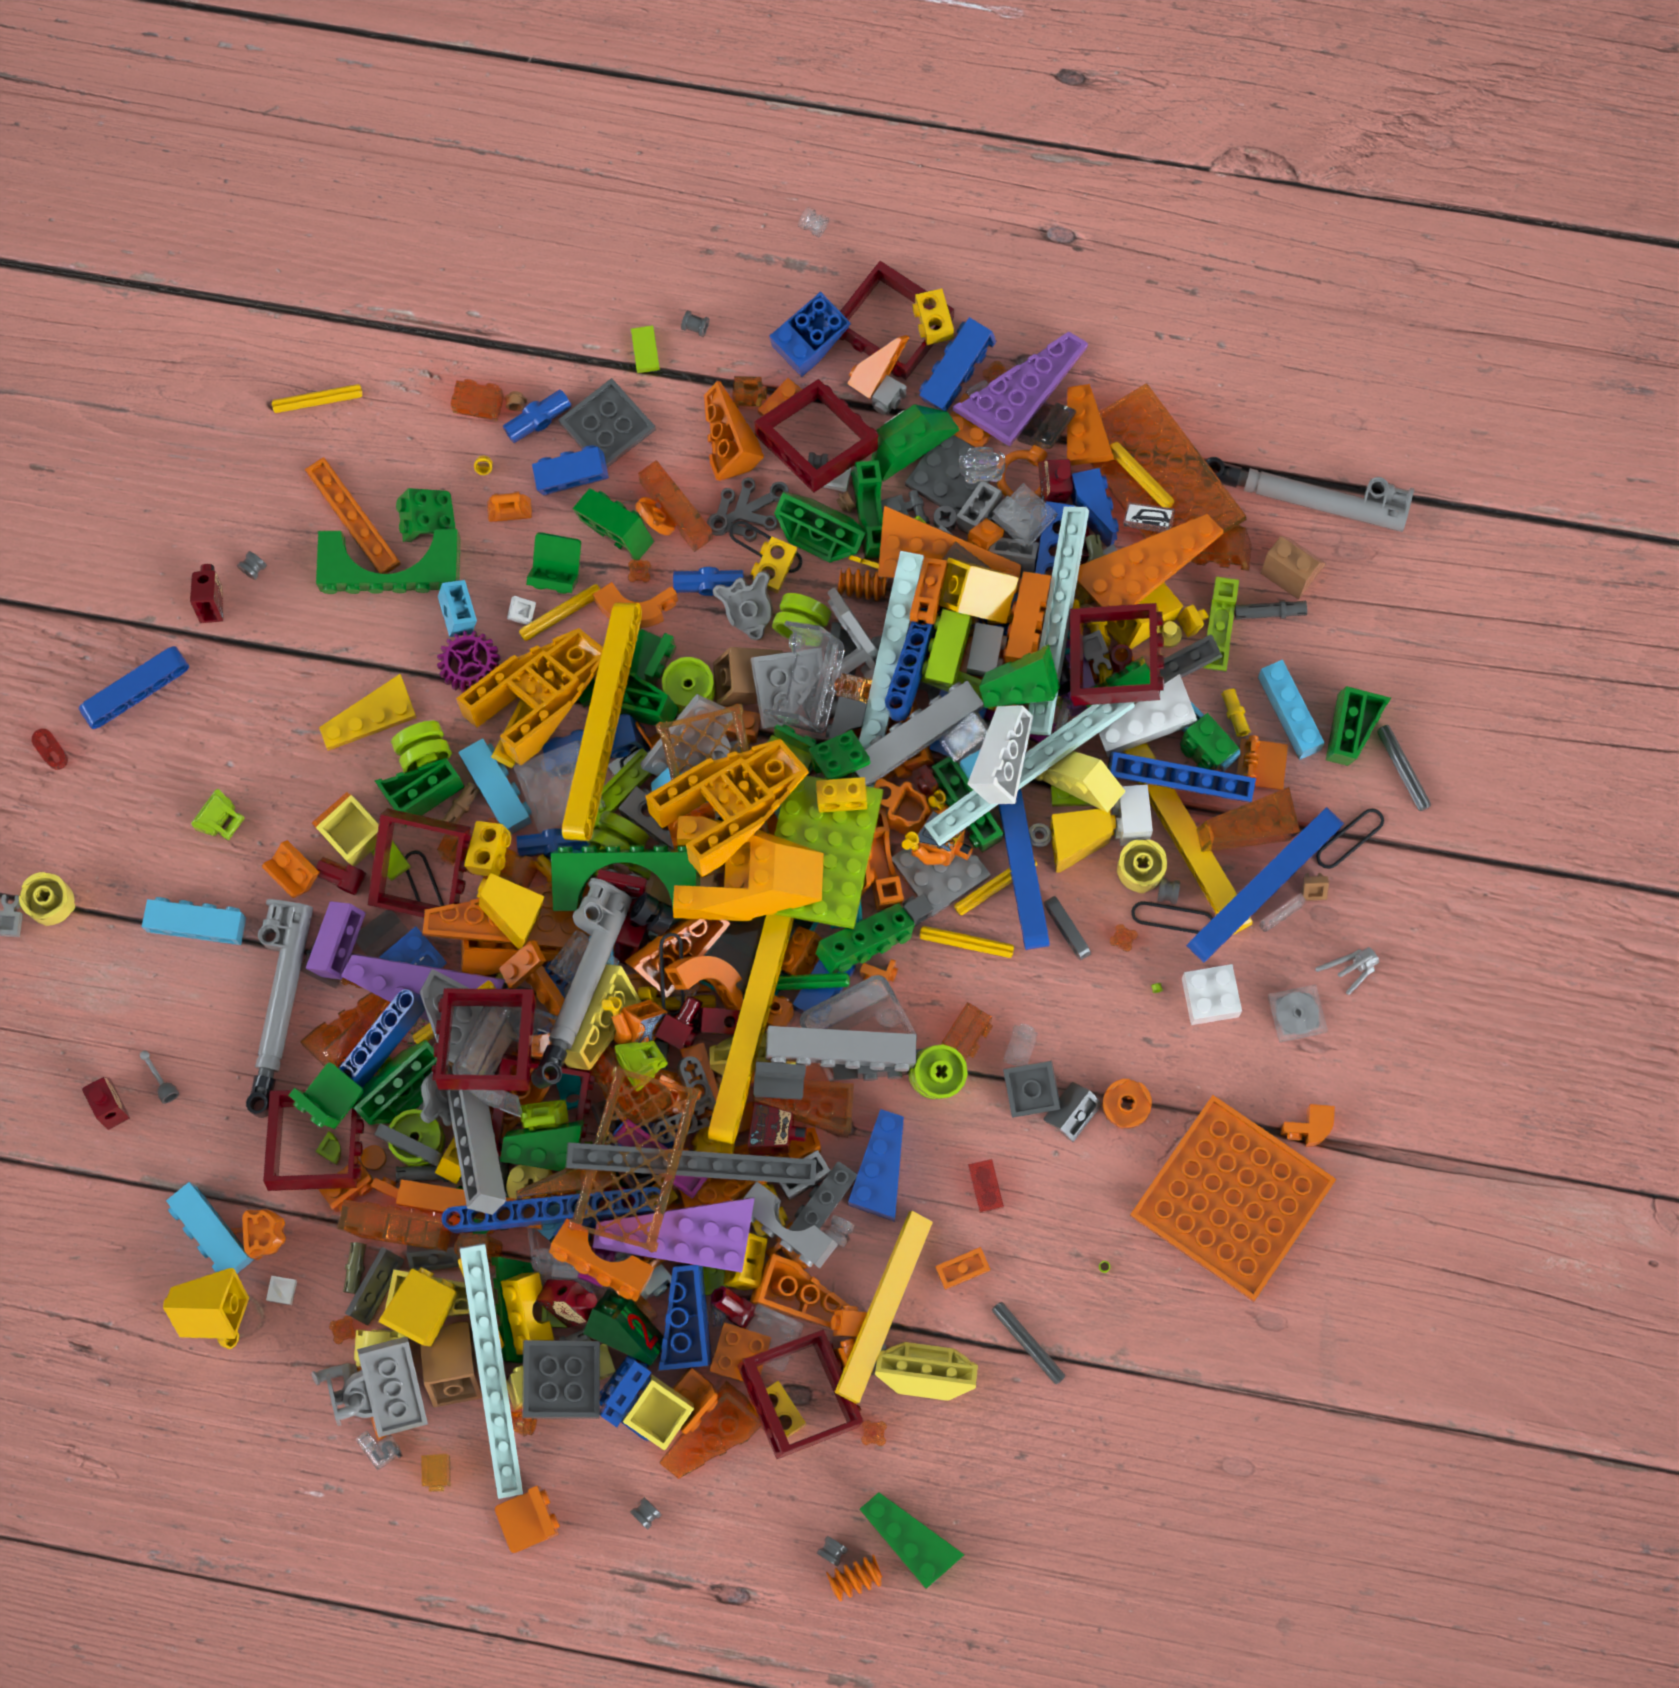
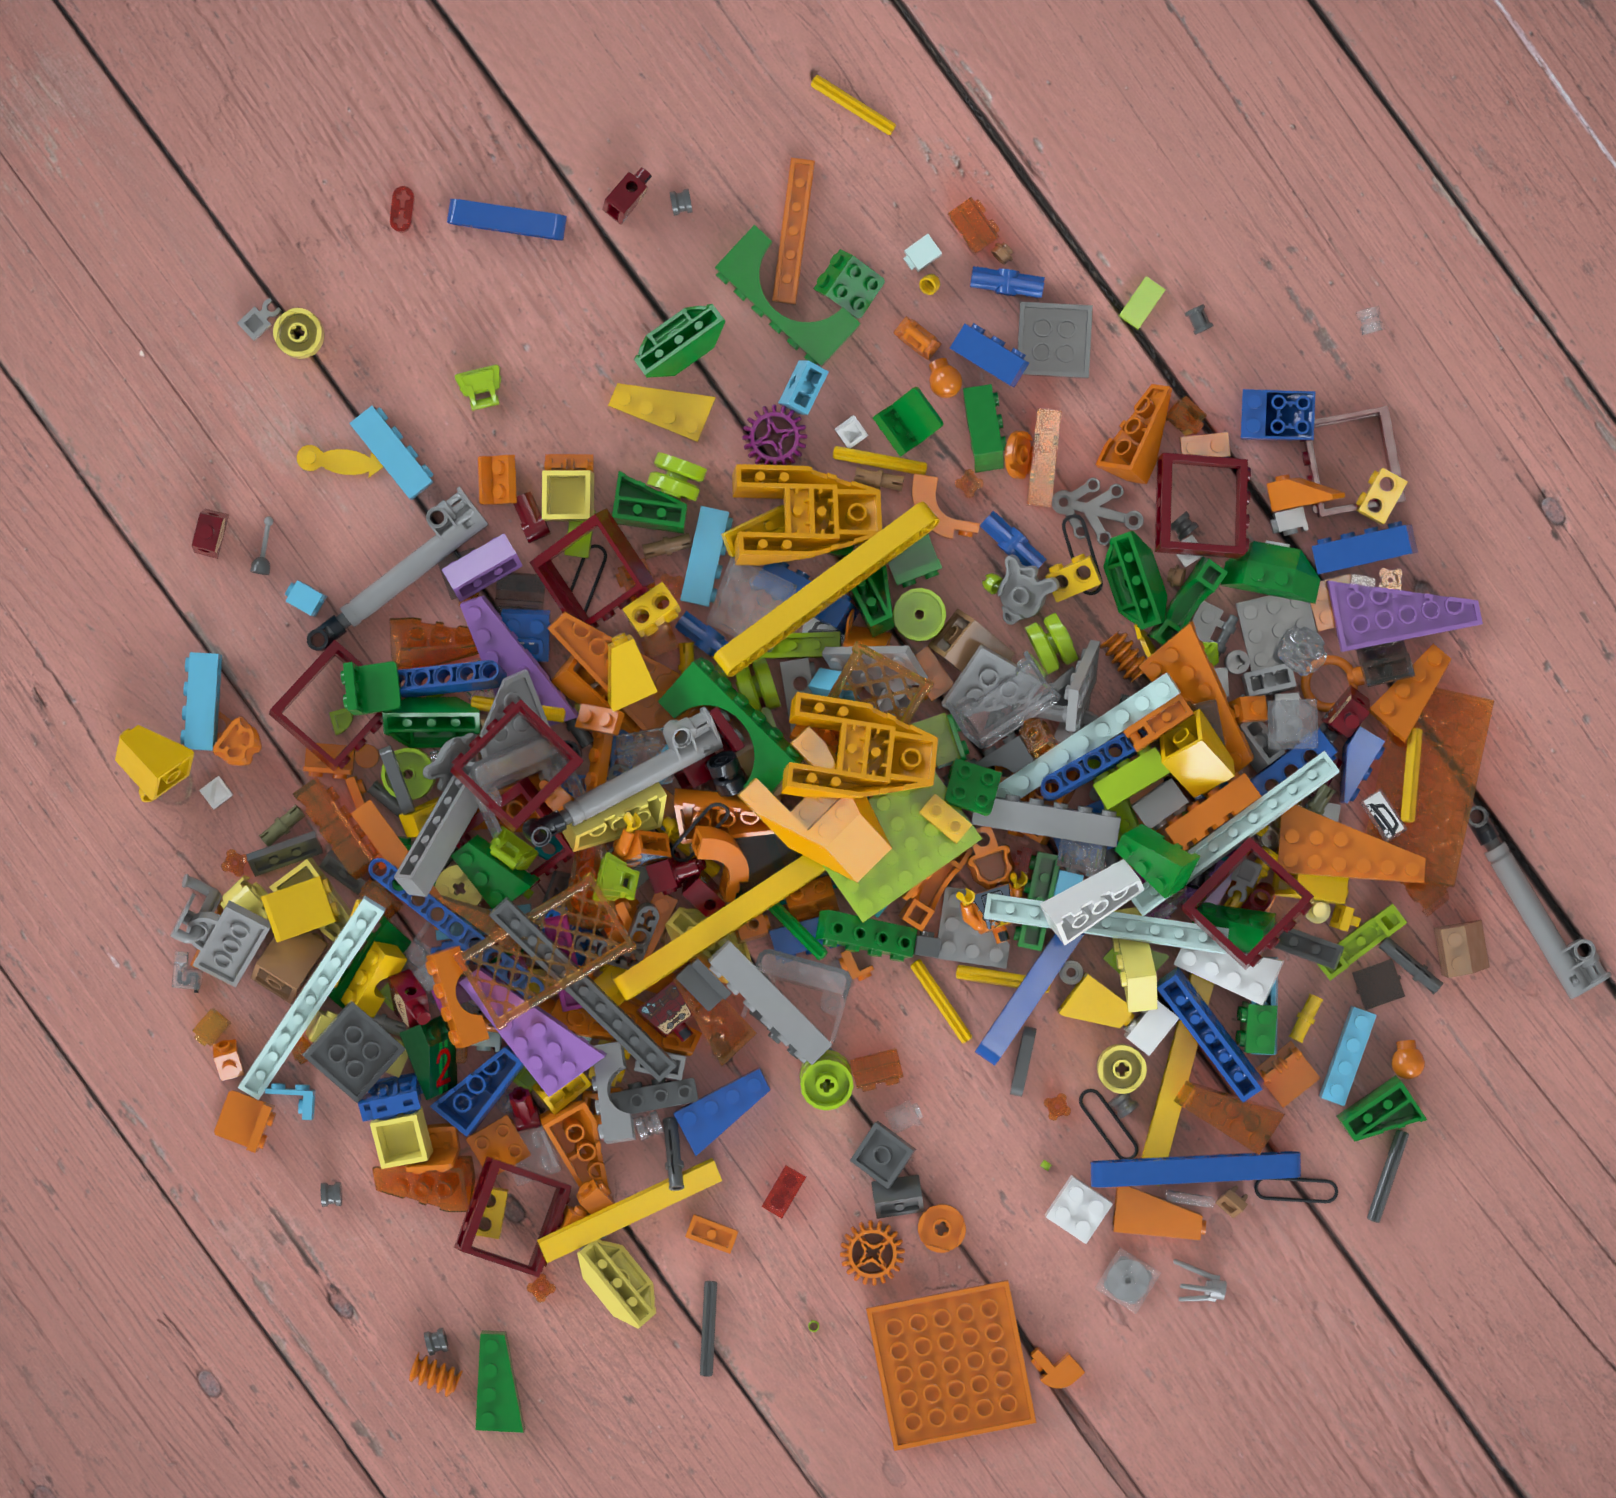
camera: 40 degrees right, 15 degrees up
(159, 966) = (338, 461): none -> yellow brick
(220, 1080) = (305, 598): none -> medium azure brick
(339, 654) = (680, 341): none -> green wedge
(458, 449) = (922, 253): none -> light aqua brick
(471, 1485) = (228, 1059): none -> orange bracket
(554, 515) = (945, 379): none -> orange piece
(564, 1463) = (306, 1105): none -> medium azure bracket
(573, 622) = (879, 479): none -> medium nougat pin
(720, 621) = (992, 583): none -> lime hinge
(895, 1248) = (674, 1163): none -> dark grey pin
(1083, 1167) = (855, 1266): none -> orange gear
(1262, 644) = (1378, 984): none -> clear smoke piece
(1266, 950) = (1150, 1215): none -> orange slope
(1335, 674) = (1407, 1060): none -> orange piece

